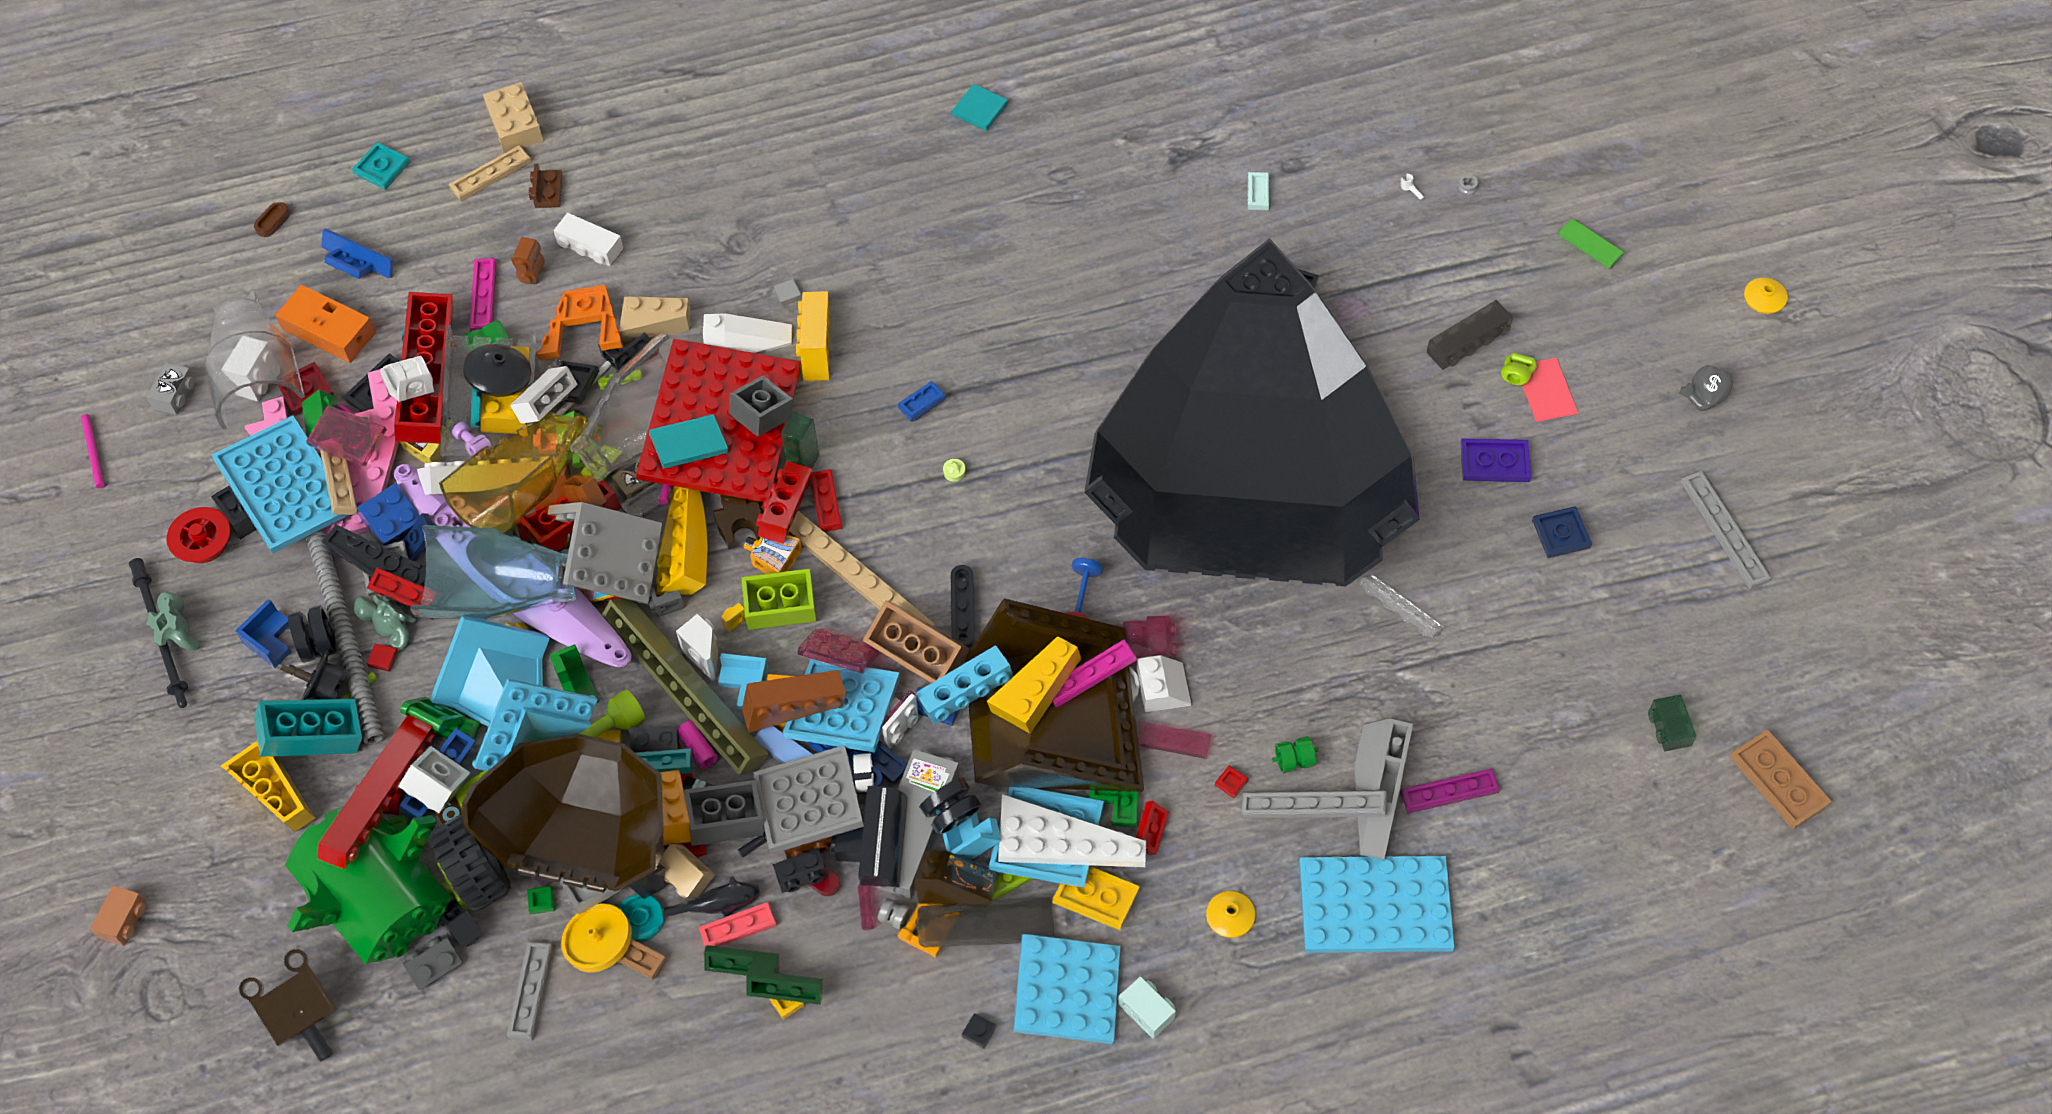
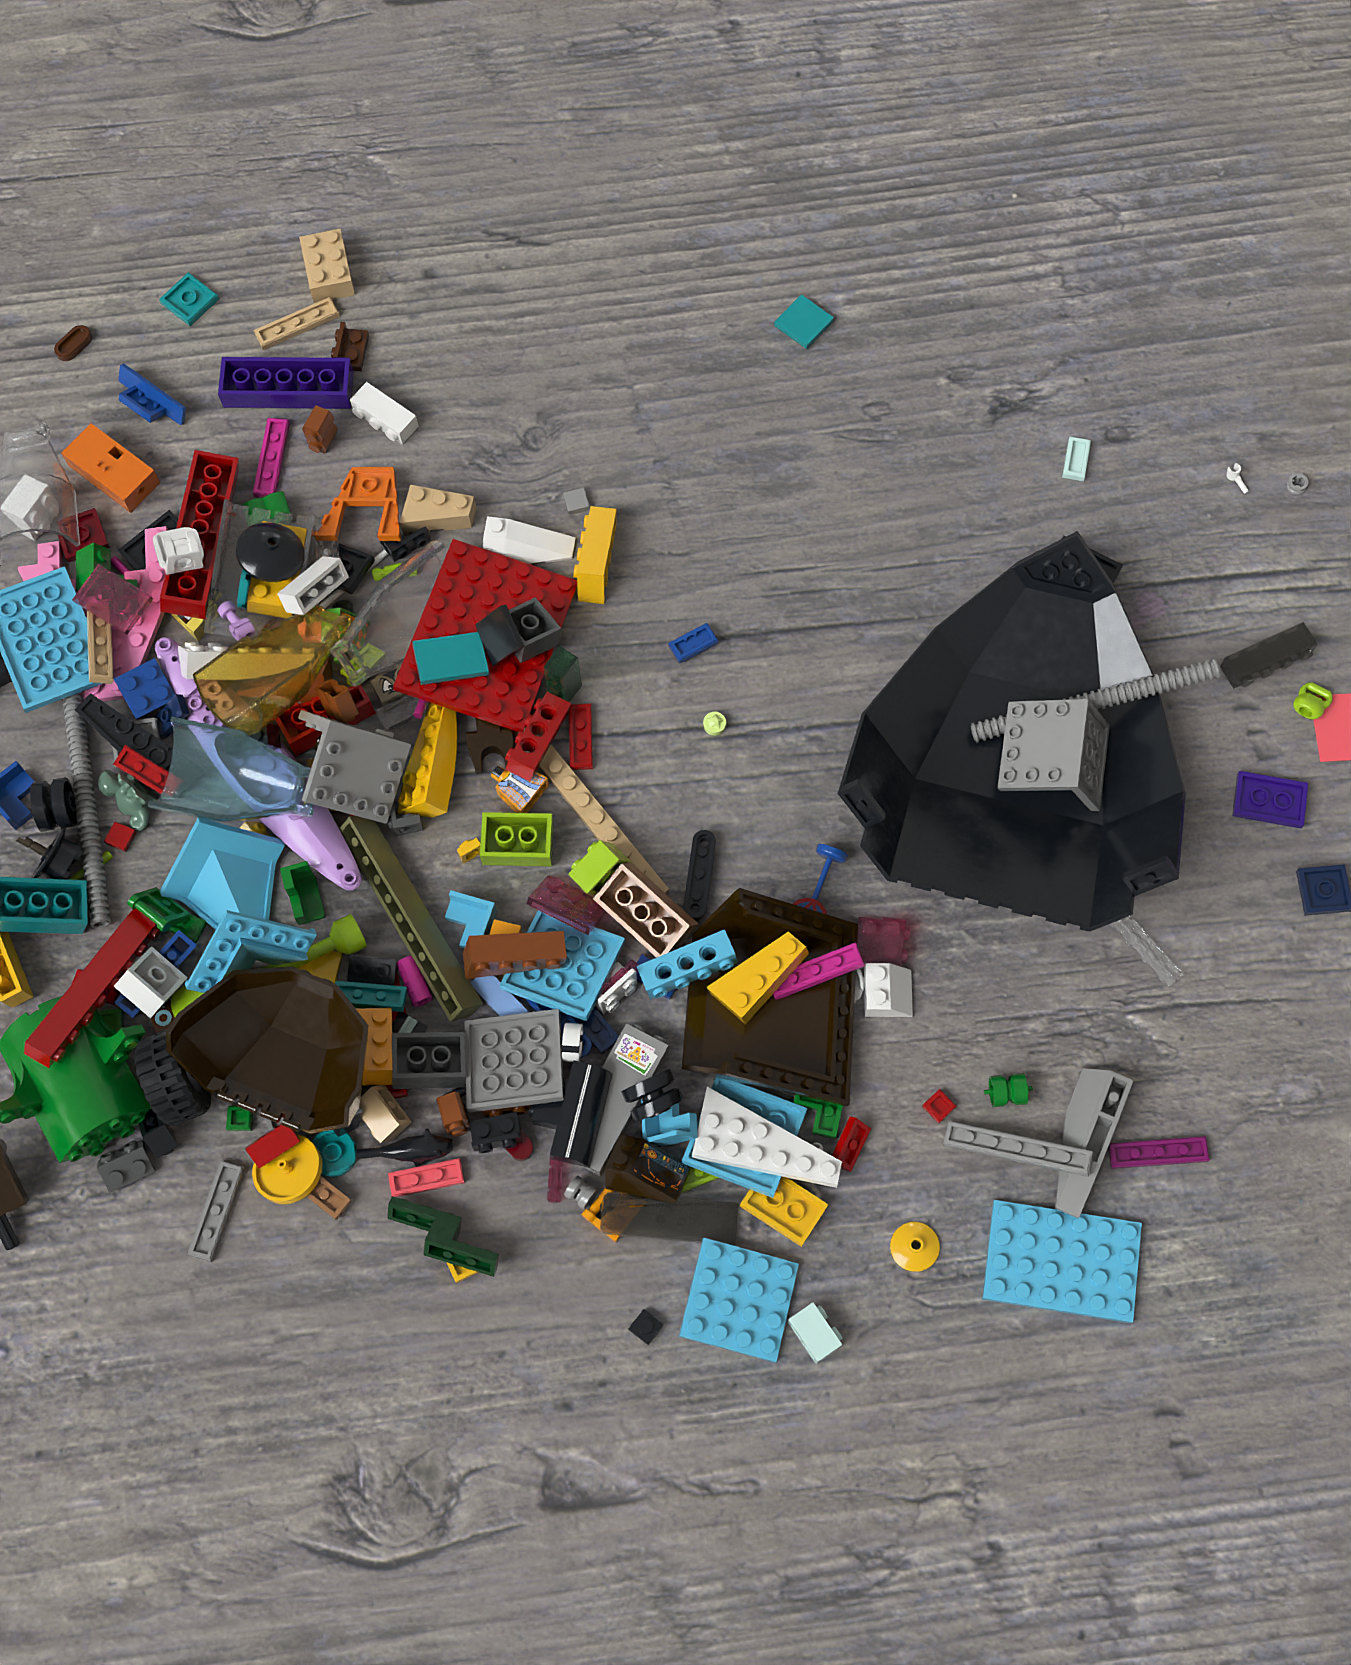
camera: 10 degrees right, 10 degrees up
(487, 224) = (285, 382): none -> dark purple brick
(578, 914) = (272, 1145): none -> red tile
(700, 645) = (432, 875): white slope -> none
(733, 412) = (499, 635): none -> black tile
(755, 858) = (453, 1114): none -> dark orange brick
(860, 608) = (597, 866): none -> lime brick
(1174, 740) = (888, 1052): clear pink tile -> none
(1284, 437) = (1055, 748): none -> light grey bracket
(1314, 392) = (1120, 693): none -> light grey piece

